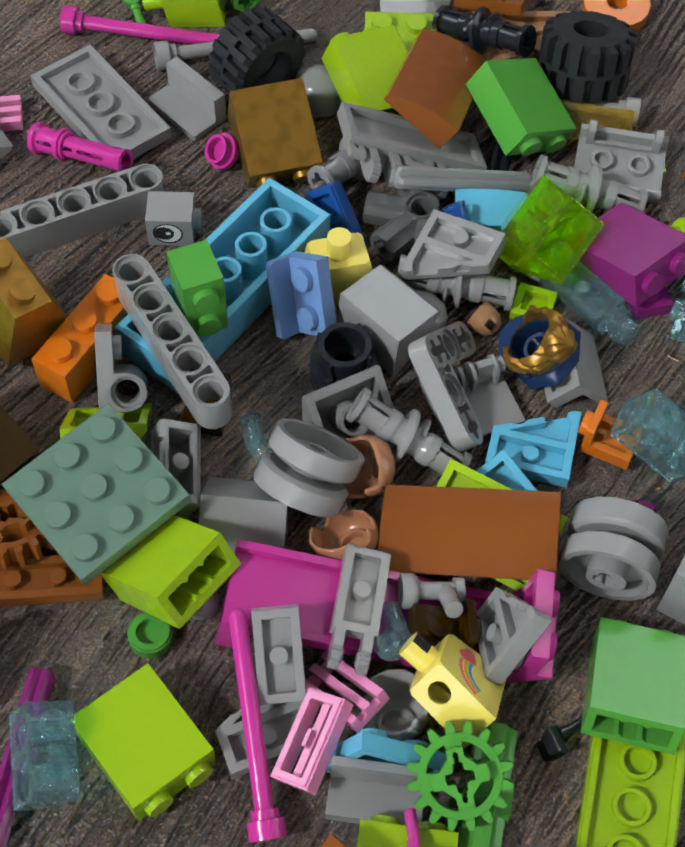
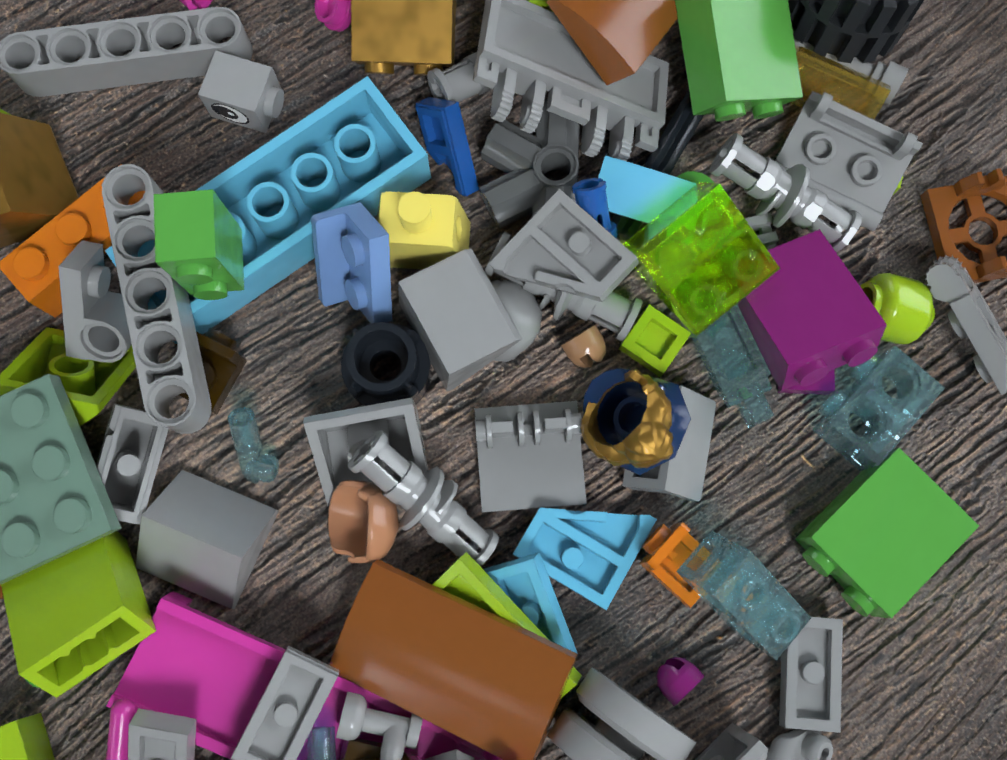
camera: 15 degrees right, 20 degrees up
(308, 468) = (280, 518): light grey wheel -> none
(348, 527) = (304, 612): nougat hair -> none
(433, 362) = (497, 495): light grey beam -> none
(454, 178) = (617, 143): light grey axle -> none

